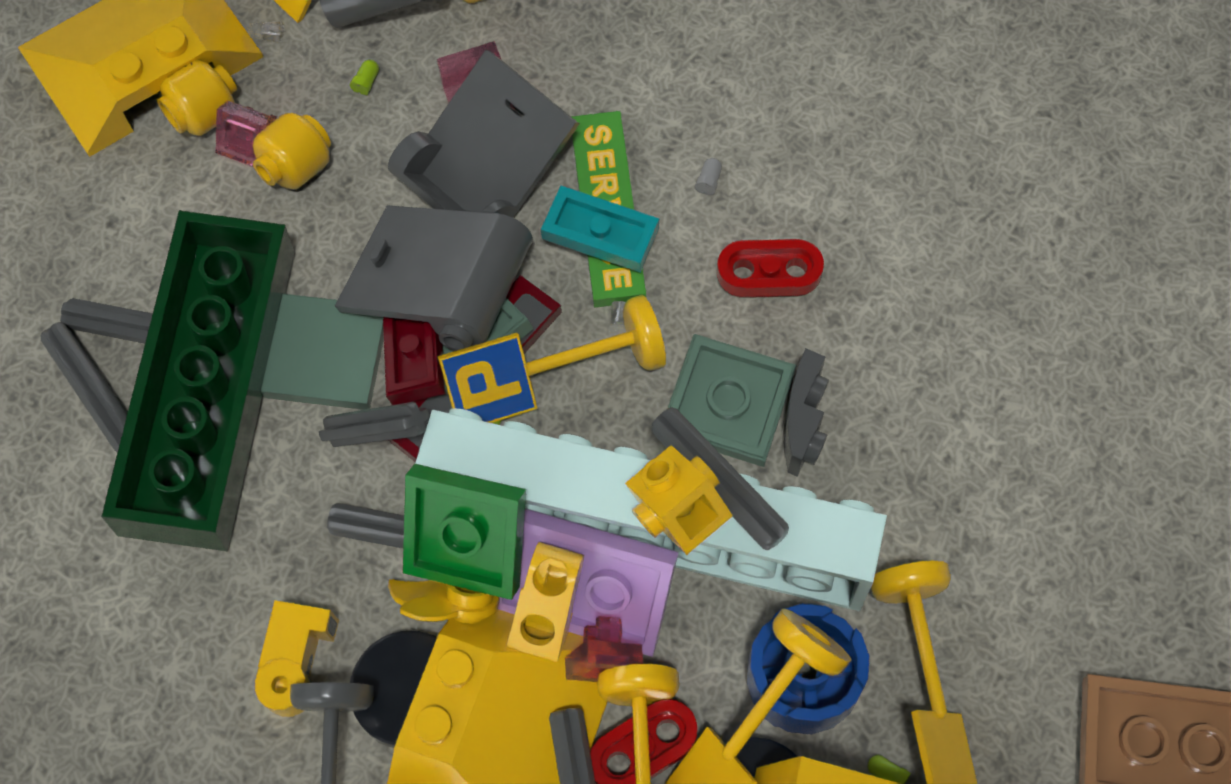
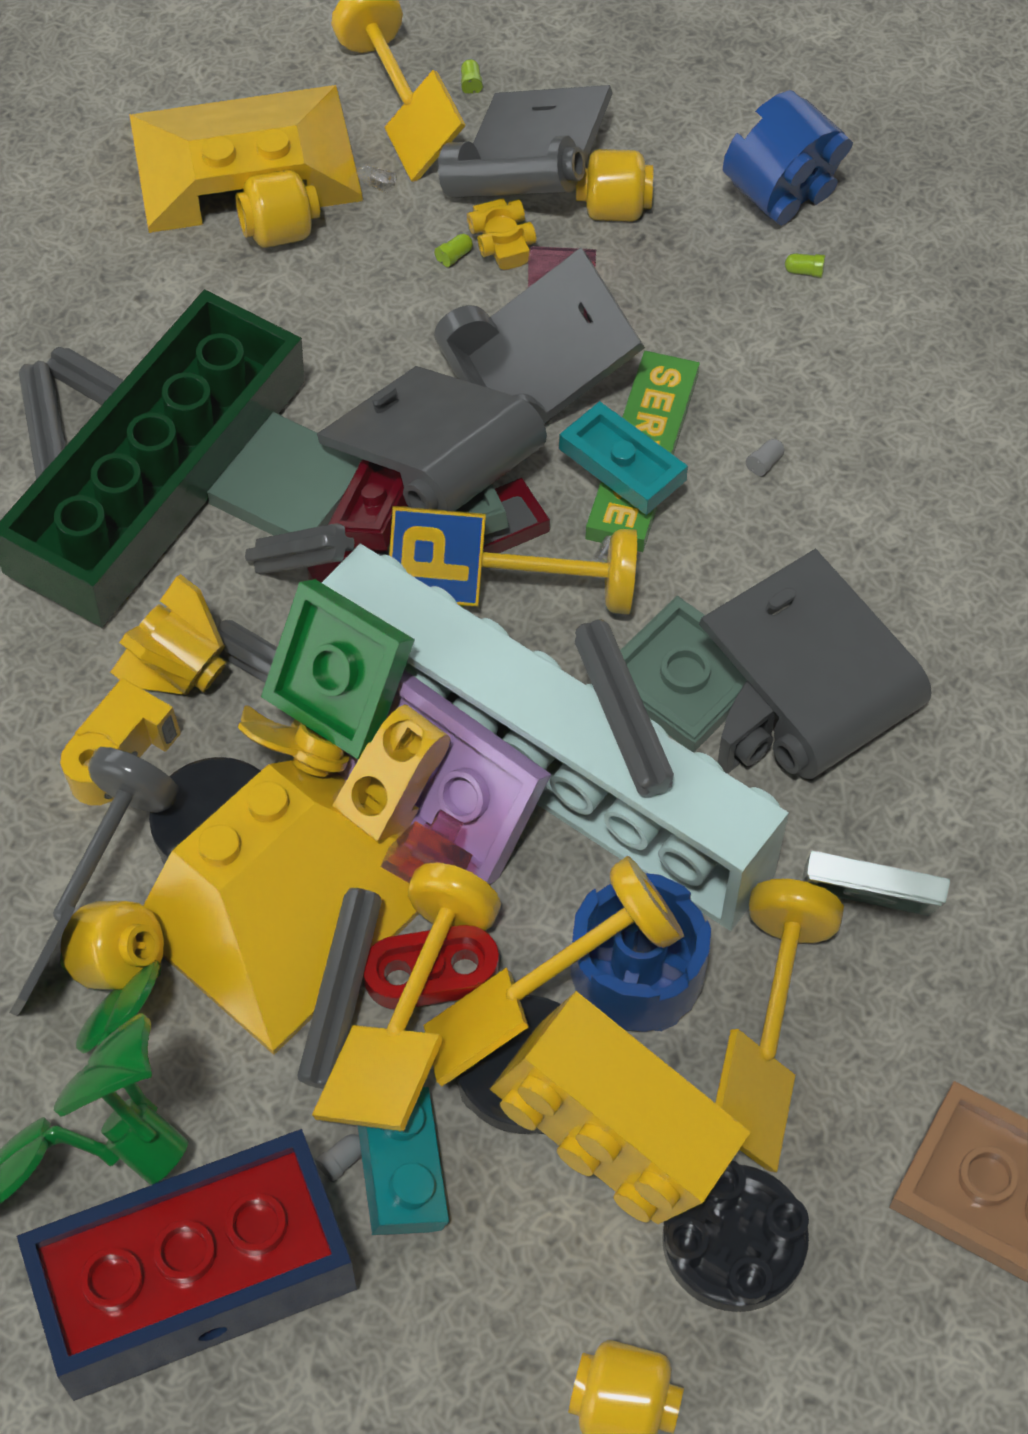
camera: 20 degrees right, 10 degrees down
(237, 129) = (308, 257): clear pink tile -> none
(291, 151) = (345, 285): yellow head -> none
(302, 549) = (173, 644): none -> yellow brick
(401, 49) = (501, 233): none -> yellow piece
(678, 499) = (565, 700): yellow brick -> none
(769, 265) = (780, 547): red plate -> none
(840, 357) = (818, 663): none -> dark grey door
(965, 537) = (877, 883): none -> tile

